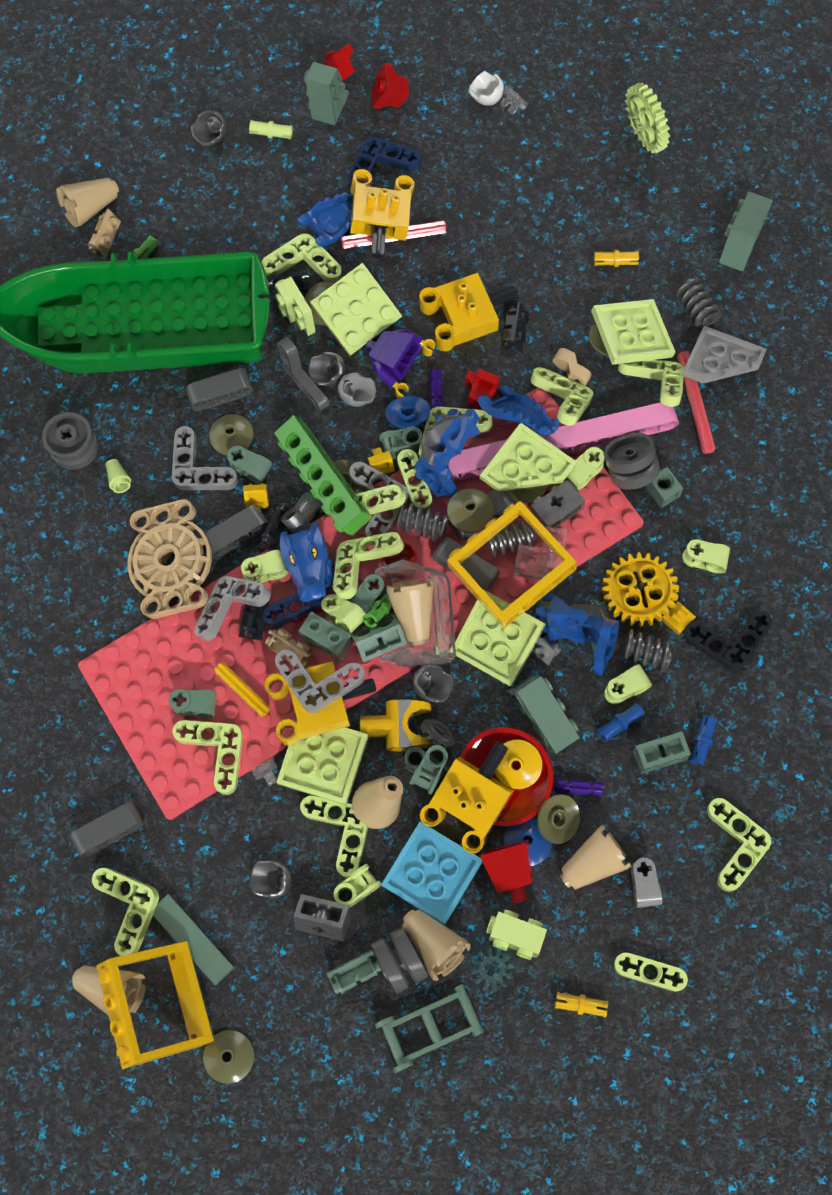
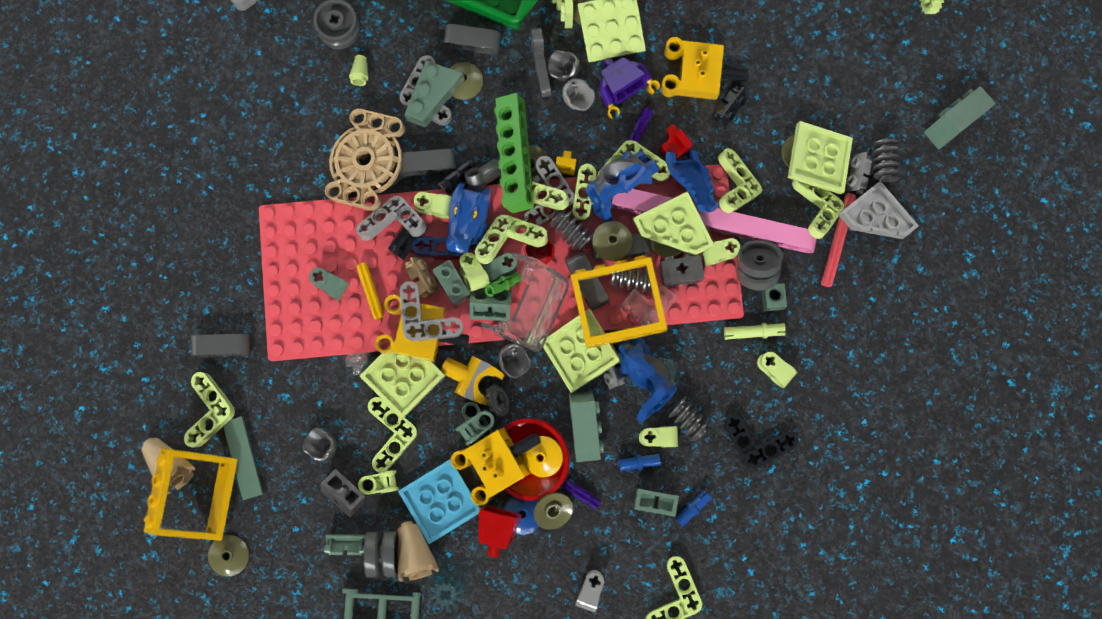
camera: 20 degrees right, 10 degrees up
(205, 456) = (431, 92): none -> sand green wedge
(219, 740) = (334, 320): yellowish green beam -> none
(251, 466) = (465, 115): sand green piece -> none
(256, 495) = (457, 141): yellow tile -> none
(378, 802) = (425, 429): tan cone -> none
(399, 440) = (589, 154): sand green piece -> none
(408, 412) = (608, 133): blue dish -> none
(413, 608) = (528, 293): tan cone -> none
(516, 934) = (476, 580): yellowish green brick -> none
(567, 361) = (756, 155): tan piece -> none
(594, 860) = (563, 555): tan cone -> none
(616, 258) = (842, 87): yellow pin -> none
(660, 584) = (727, 372): yellow gear -> none
(671, 526) = (763, 330): none -> yellowish green pin
(676, 322) = (860, 165): none -> light grey hinge
(678, 618) = (727, 405): yellow tile -> none

